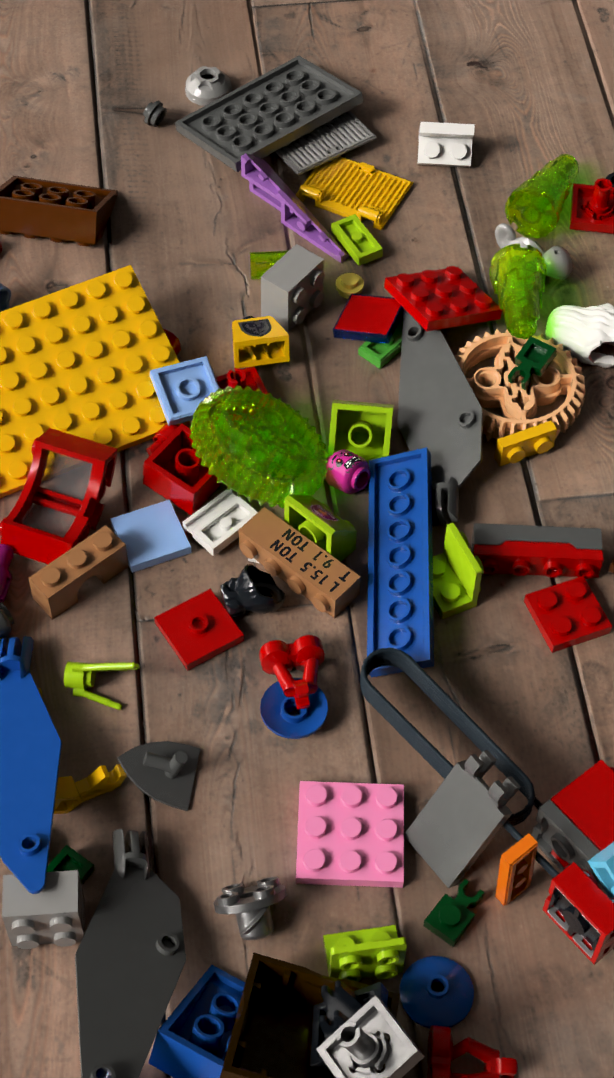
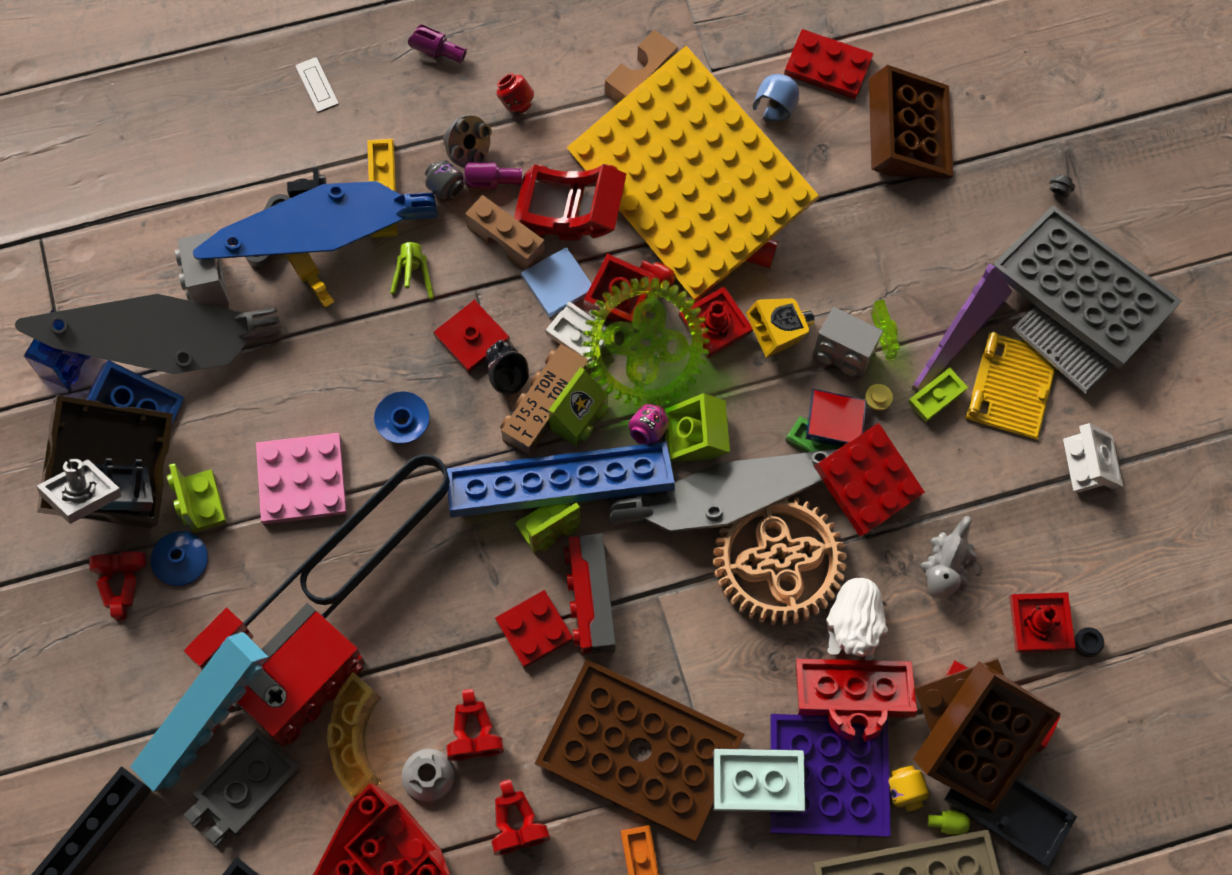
camera: 80 degrees right, 15 degrees up
(71, 860) = (244, 284): dark green plate -> none
(163, 771) = (336, 333): dark grey shield -> none
(183, 387) = (703, 275): light blue tile -> none
(205, 91) = (1116, 236): light grey piece -> none
(251, 906) = (225, 411): flat silver plate -> none
(304, 655) = (447, 401): red piece -> none
(451, 916) = (239, 561): dark green plate -> none
(461, 818) = (299, 547): dark grey tile -> none
(516, 869) = (257, 592): orange tile -> none
(519, 284) = (892, 545): clear neon green cone -> none
(525, 443) = (717, 584): yellow plate -> none
(531, 359) = (796, 565): dark green plate -> none
(541, 199) = (1040, 563): clear neon green cone -> none

